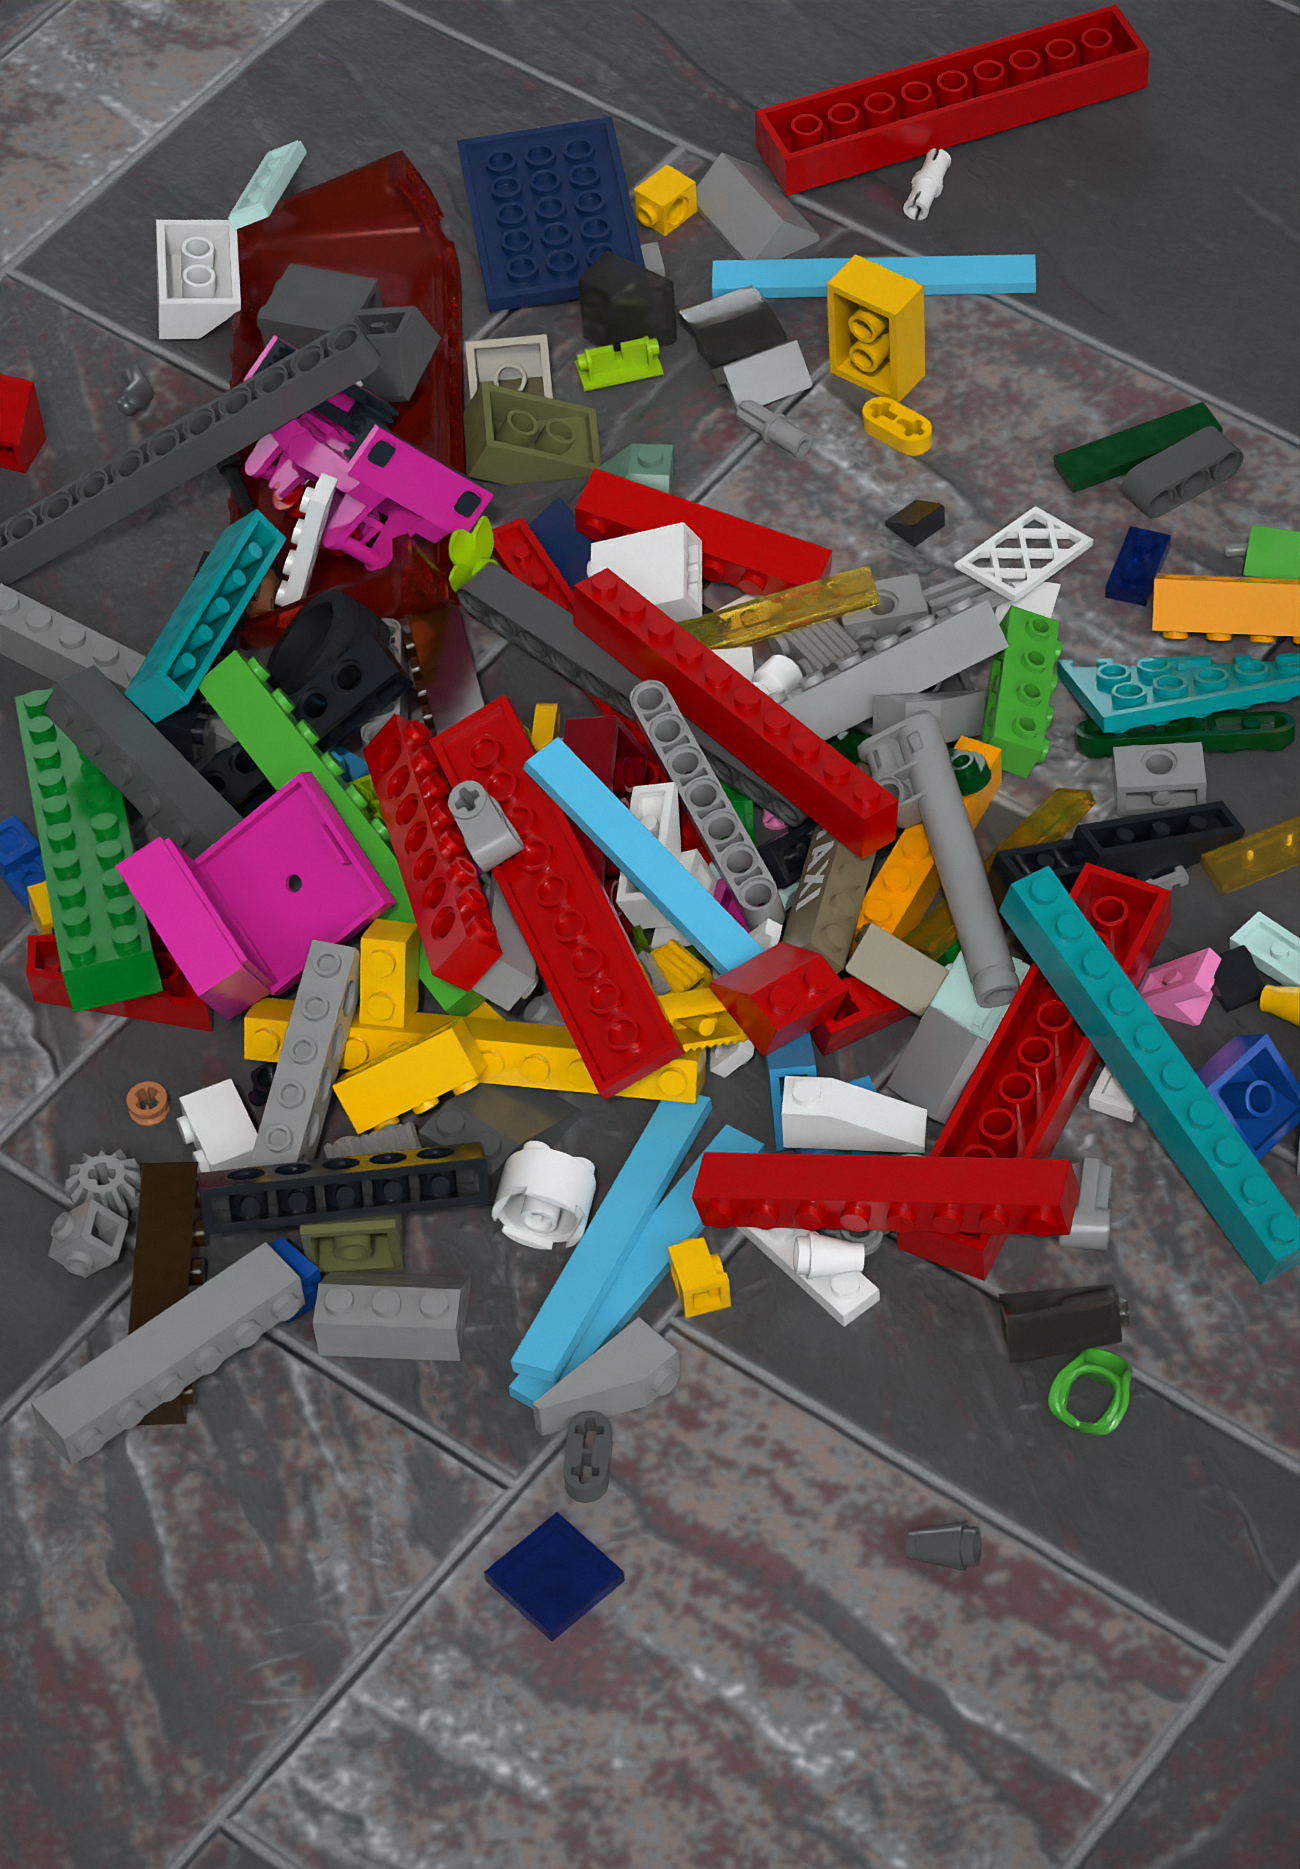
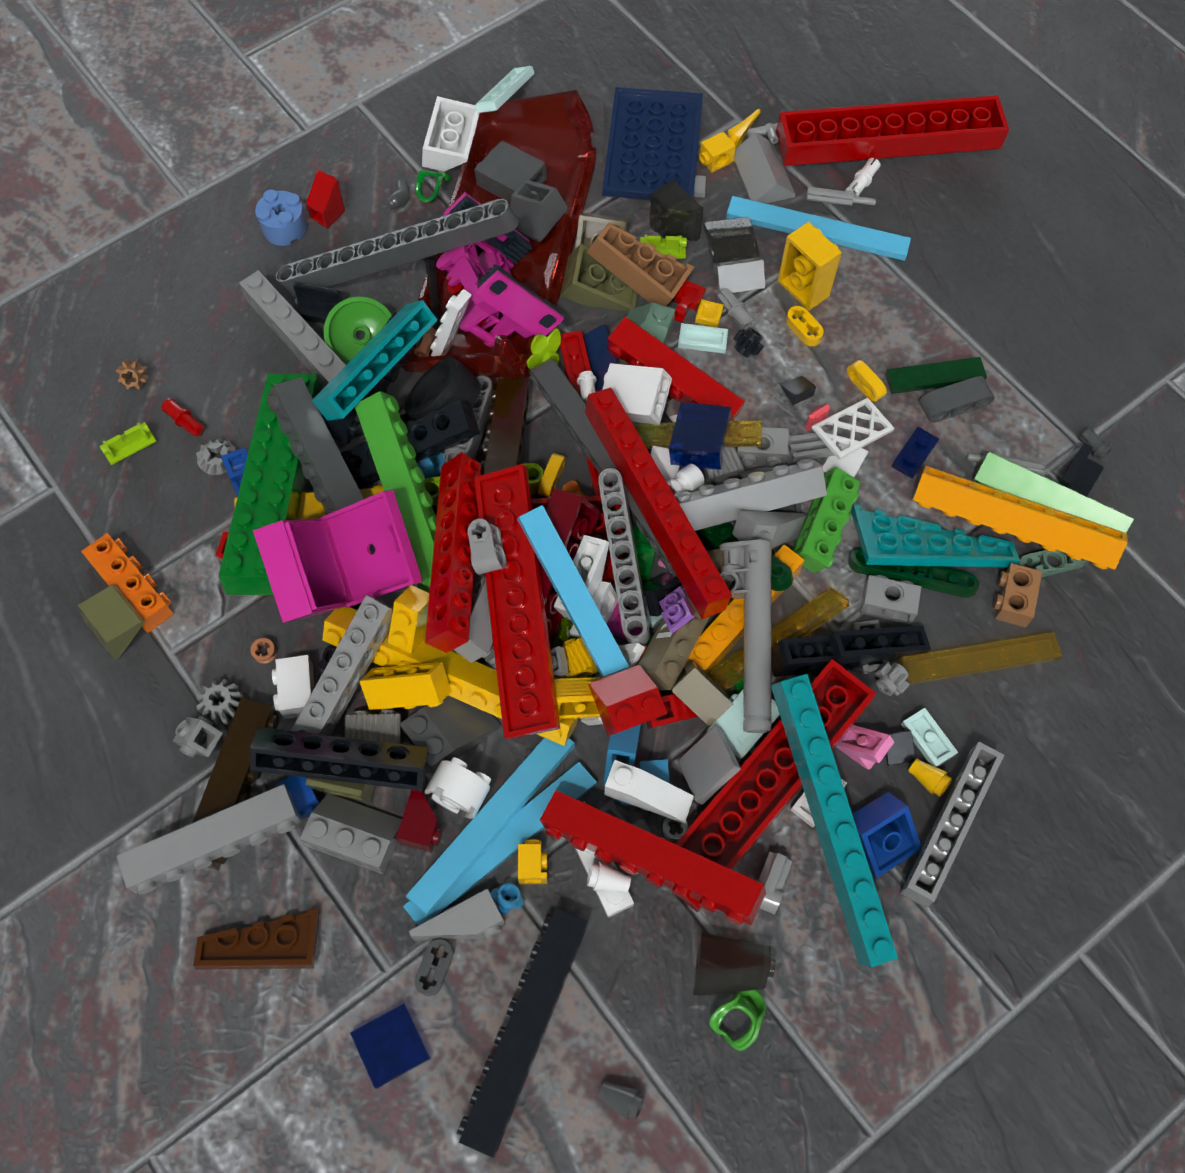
camera: 10 degrees right, 15 degrees up
(58, 580) = (315, 302): none -> black panel
(137, 580) = (350, 317): none -> bright green dish
(165, 356) = (441, 175): none -> green piece
(321, 1490) = (268, 945): none -> reddish brown wing
(497, 1269) = (419, 824): none -> dark red slope
(559, 586) = (587, 384): none -> white pin
(590, 392) = (639, 265): none -> medium nougat wedge
(677, 1329) = (510, 891): none -> dark azure plate
(687, 427) = (688, 297): none -> red plate
(694, 159) = (738, 132): none -> yellow piece
(730, 446) = (709, 313): none -> yellow tile
(732, 484) = (703, 338): none -> light aqua tile
(742, 147) = (769, 130): none -> light grey piece
(761, 1498) = (523, 1034): none -> black brick
(774, 612) = (699, 435): none -> clear blue panel
(810, 469) = (748, 342): none -> black gear
(815, 854) = (676, 609): none -> medium lavender slope
(890, 223) = (836, 197): none -> light grey axle
(958, 548) = (818, 414): none -> coral slope
(1025, 480) = (866, 381): none -> yellow beam
(1195, 885) = (892, 679): none -> light grey gear

